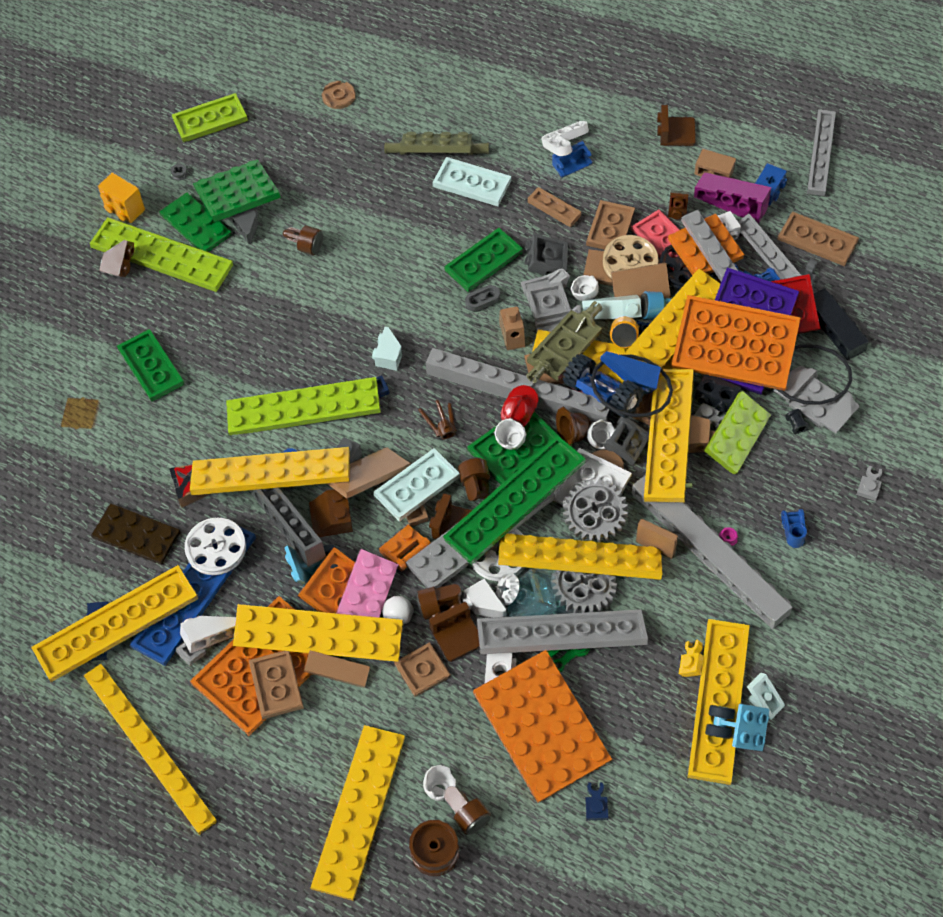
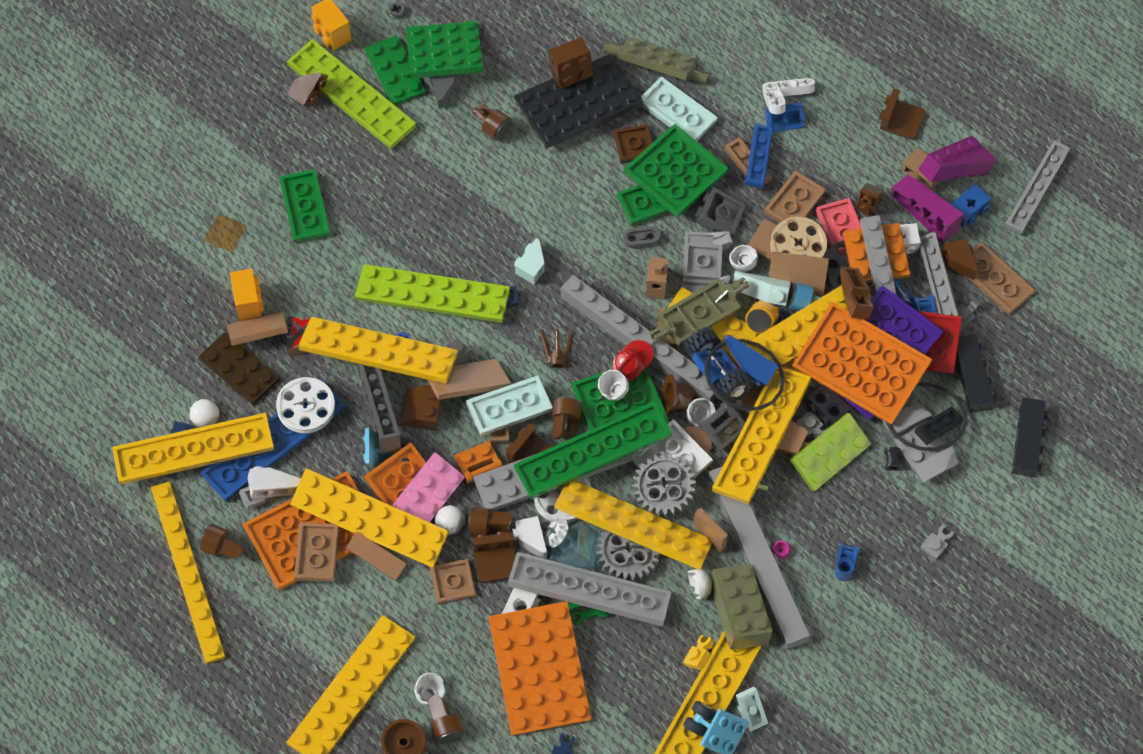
camera: 15 degrees right, 5 degrees up
(114, 586) = (204, 413): none -> white hair
(121, 460) = (246, 294): none -> light orange brick
(142, 489) = (257, 328): none -> medium nougat tile
(169, 706) = (215, 541): none -> reddish brown piece
(360, 165) = (570, 62): none -> reddish brown piece
(377, 199) = (577, 108): none -> black plate
(443, 221) = (632, 142): none -> reddish brown tile
(492, 230) = (676, 170): none -> green plate
(563, 197) = (758, 156): none -> blue tile
(666, 591) = (701, 581): none -> white hair
(706, 281) = (856, 293): none -> reddish brown slope
(715, 601) = (740, 607): none -> olive brick
(745, 147) = (958, 160): none -> magenta wedge
(783, 229) = (960, 258): none -> reddish brown slope
(827, 378) = (939, 425): none -> black tile
(912, 364) = (1028, 437): none -> black brick

